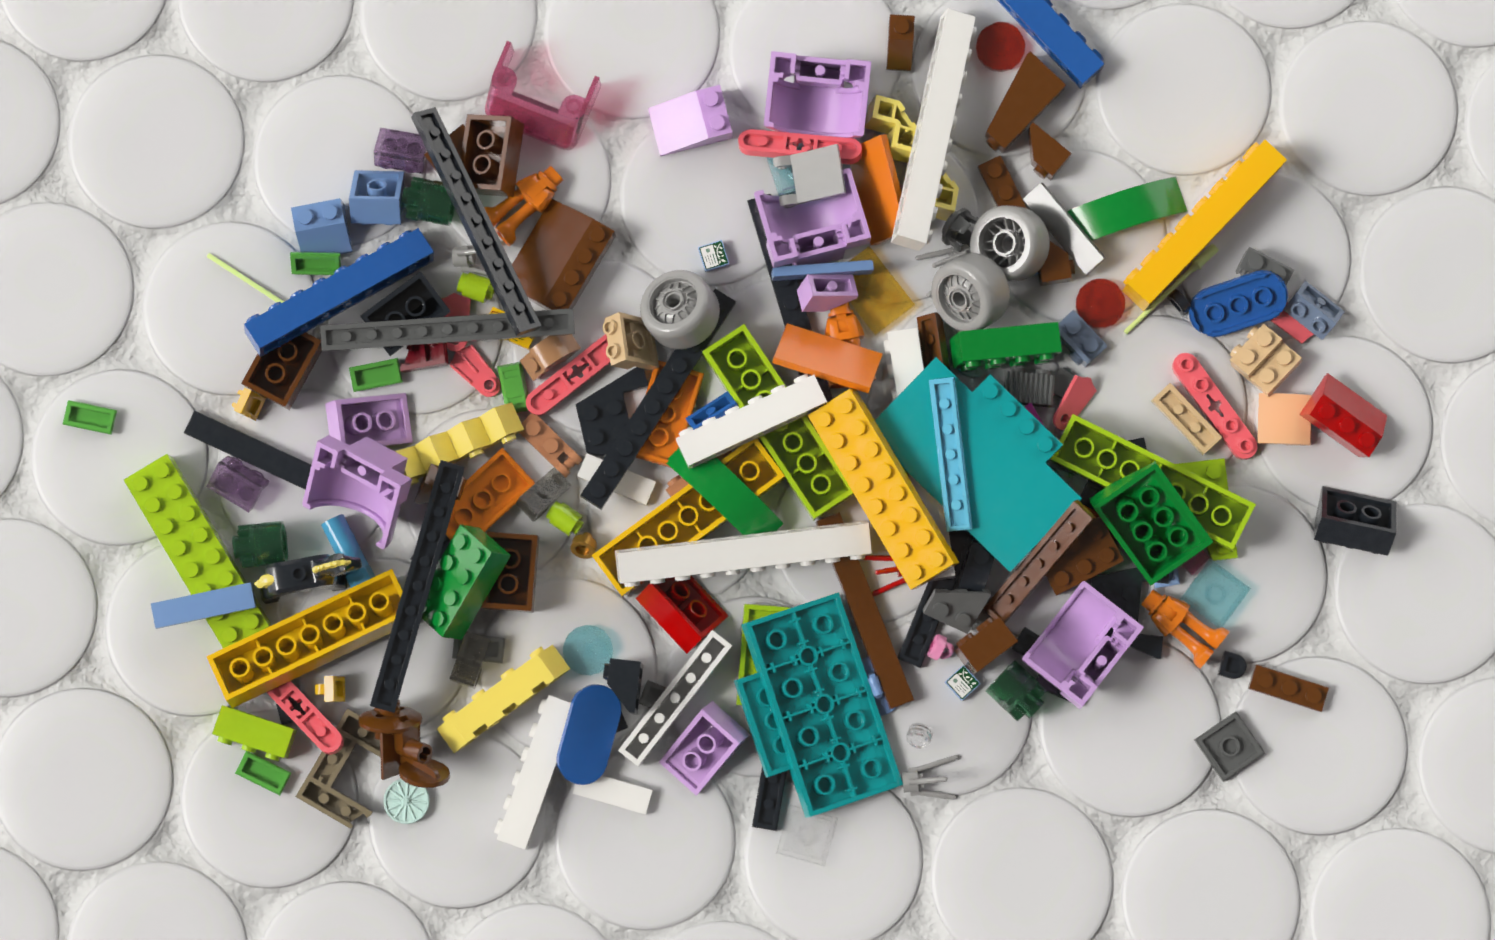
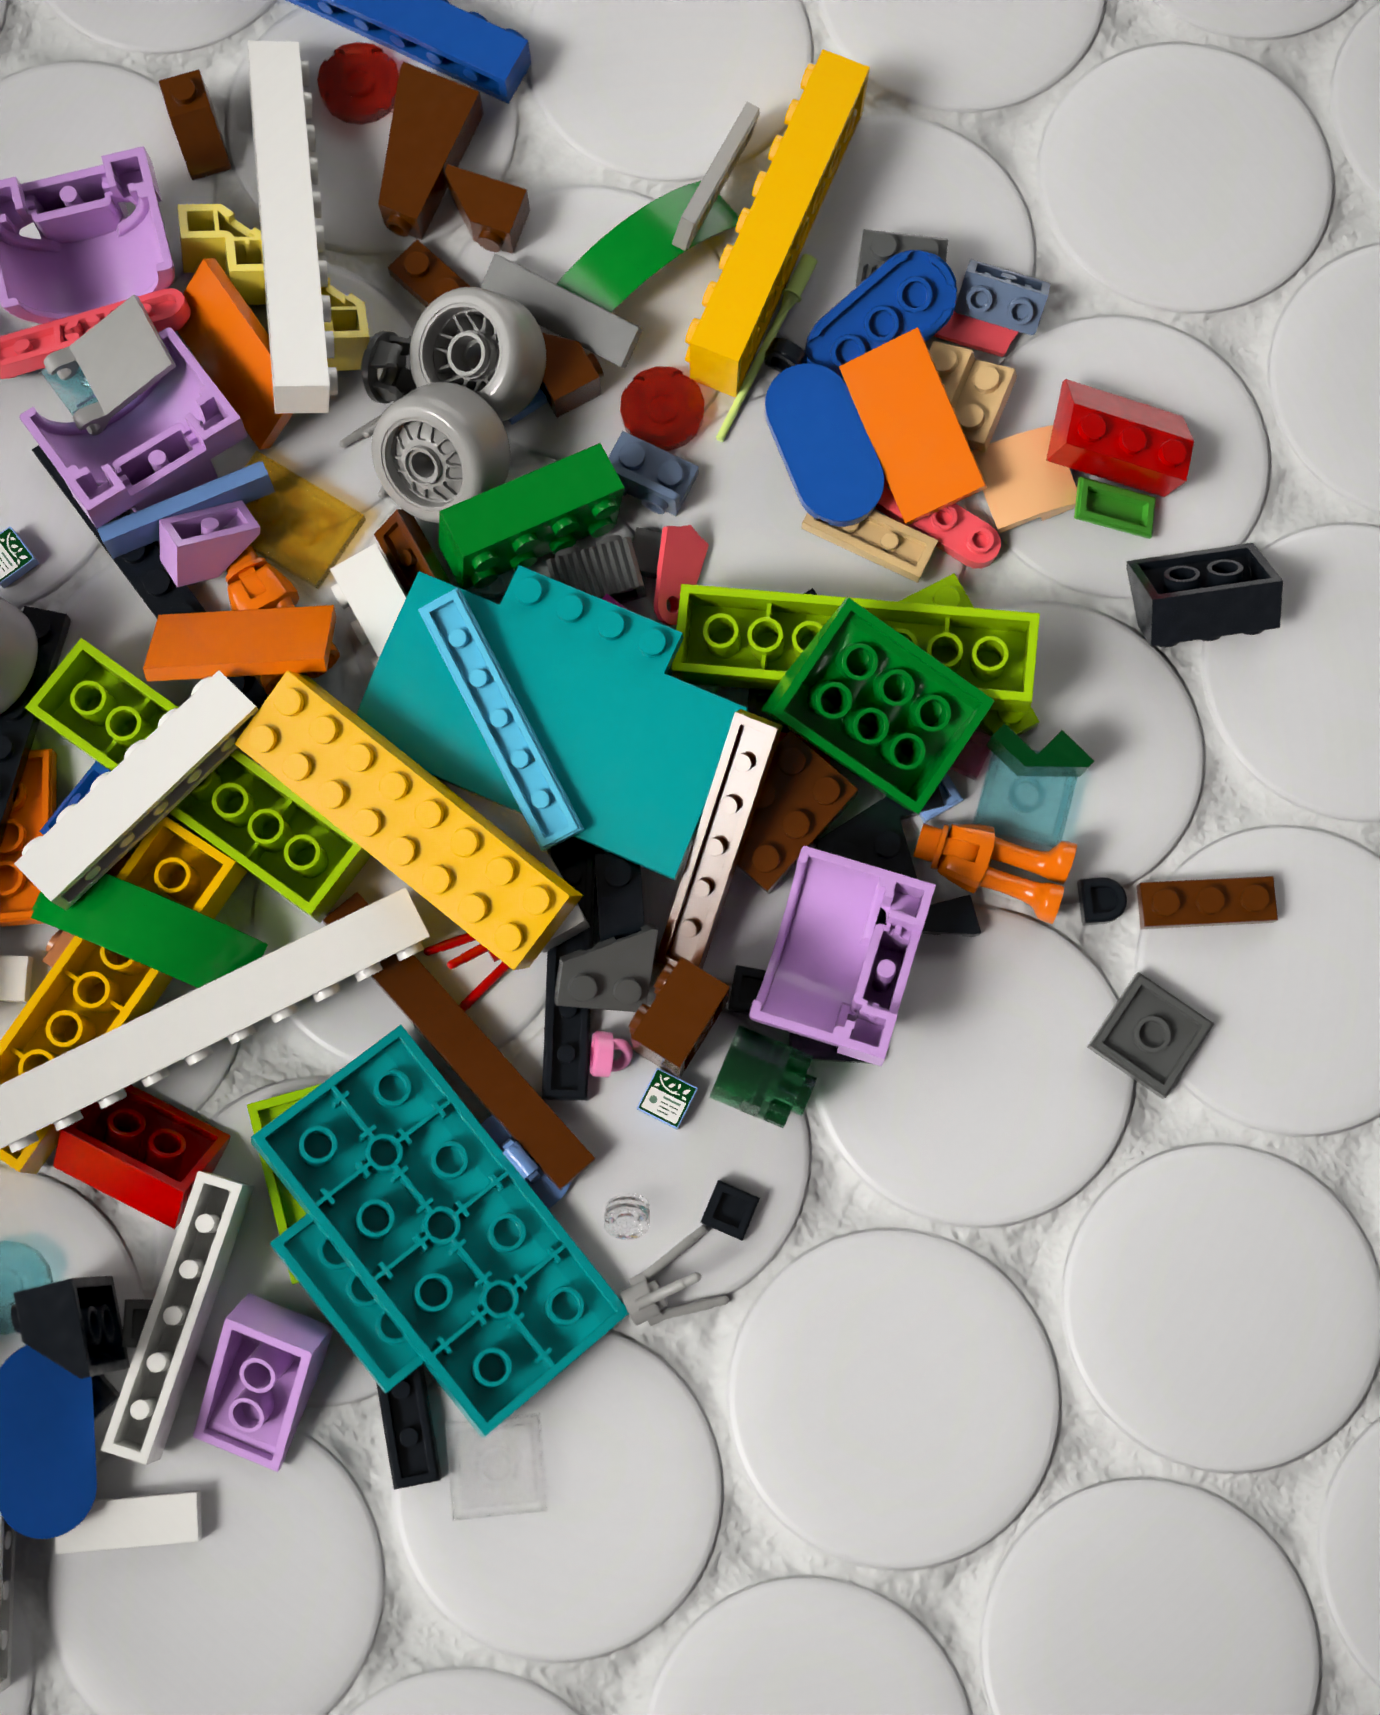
camera: 25 degrees left, 5 degrees down
(973, 752) = (730, 1210): none -> black tile
(1180, 184) = (716, 177): none -> light grey tile
(1180, 361) = (824, 444): none -> blue tile
(1231, 370) = (912, 426): none -> orange tile
(1238, 582) = (1057, 759): none -> dark green slope
(1326, 455) = (1114, 507): none -> bright green tile

